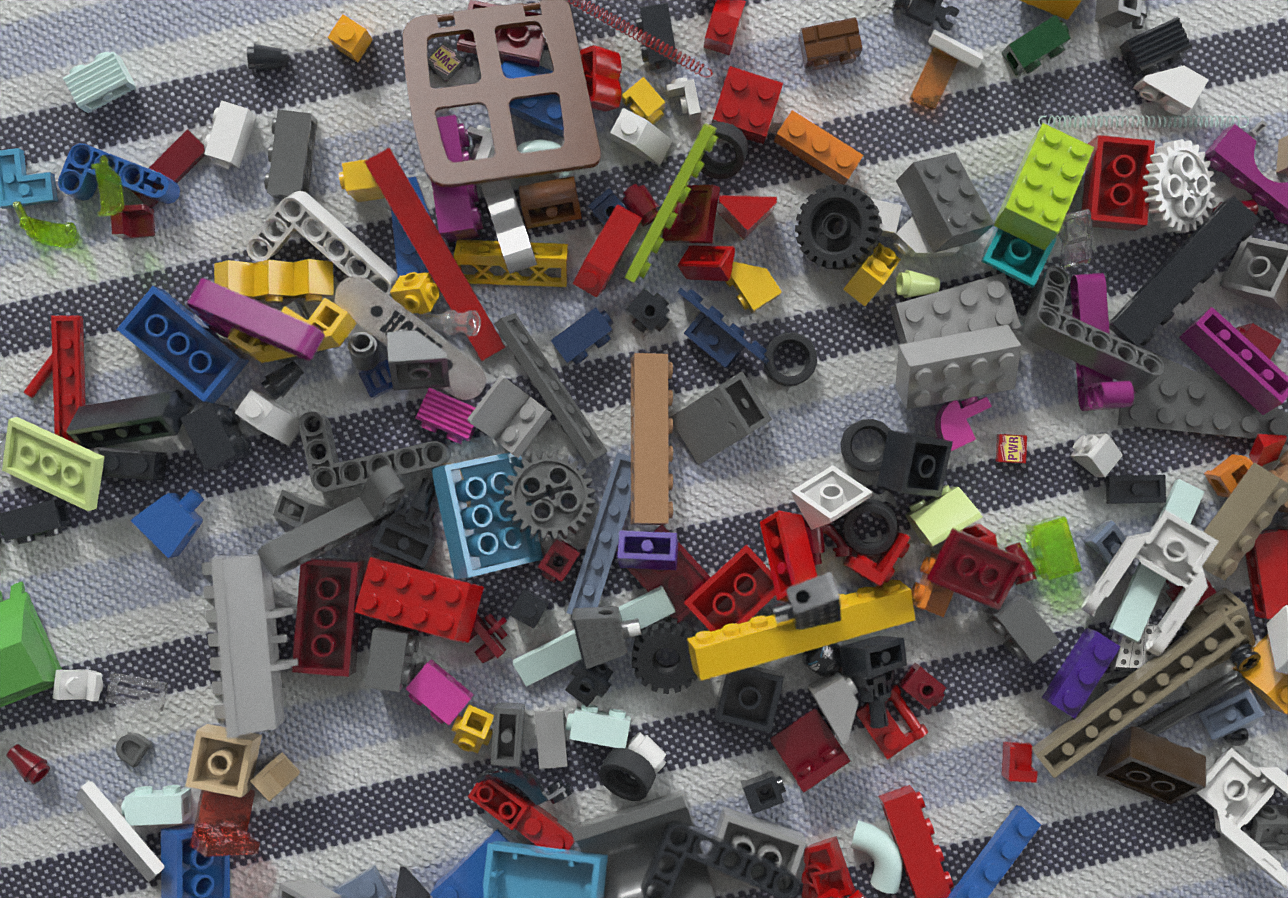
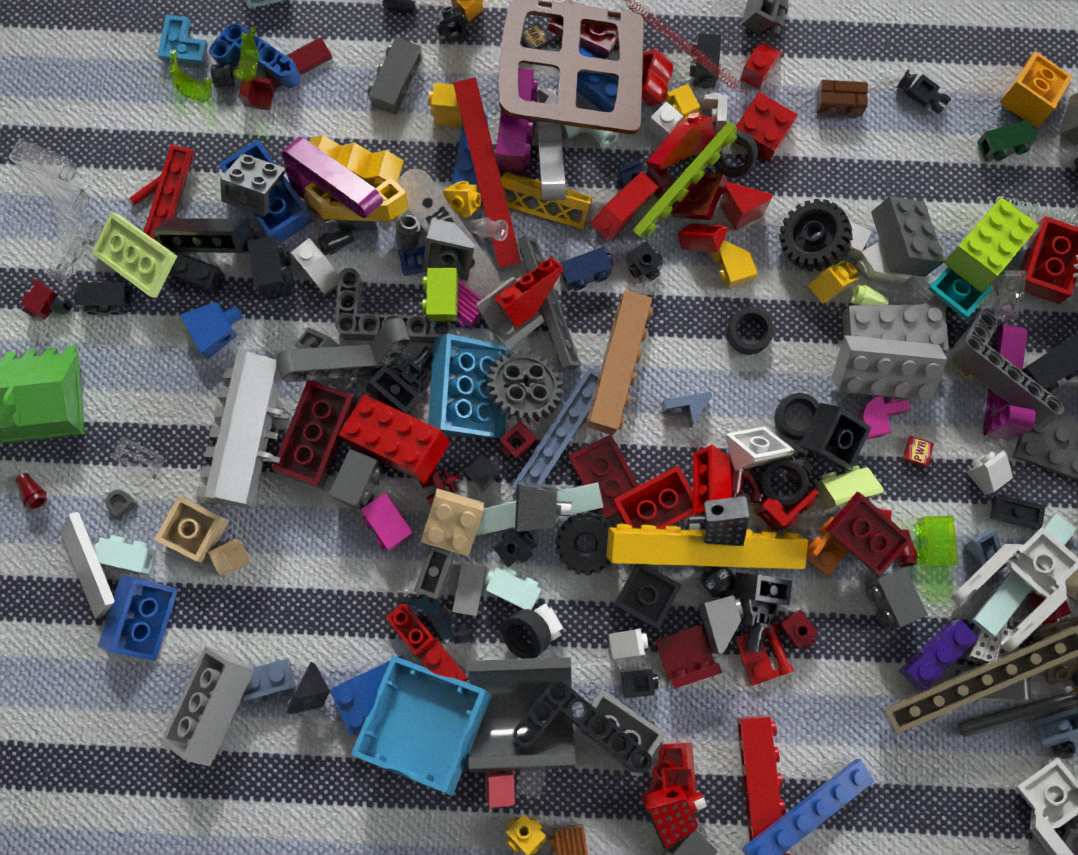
camera: 10 degrees right, 10 degrees down
(77, 685) = (93, 436): white bracket -> none
(84, 210) = (222, 75): none -> black wheel
(161, 345) = (249, 184): none -> dark grey bracket
(223, 825) = (175, 581): clear red bracket -> none
(229, 135) = (352, 48): white brick -> none
(323, 240) = (402, 141): white beam -> none
(341, 73) = (455, 31): none -> black brick
(424, 418) = (441, 294): none -> lime brick
(472, 729) = (406, 560): yellow brick -> none
(512, 676) = (452, 522): none -> tan brick
(524, 391) = (526, 296): none -> red slope
(550, 202) = (588, 159): reddish brown brick -> none
(647, 550) = (594, 448): brick -> none
(657, 152) = (684, 140): none -> red slope
(715, 336) = (695, 295): dark blue bracket -> none
(720, 418) = (682, 361): dark grey slope -> none
(740, 754) = (627, 643): none -> white slope
(748, 464) = (692, 403): none -> sand blue slope
(818, 147) = (812, 171): orange brick -> none
(885, 854) = (730, 765): light aqua cylinder -> none
(933, 79) = (918, 146): clear orange tile -> none
(955, 49) = (941, 127): white tile -> none
(1017, 762) = (866, 719): red panel -> none
(1153, 766) = (985, 753): dark brown slope -> none

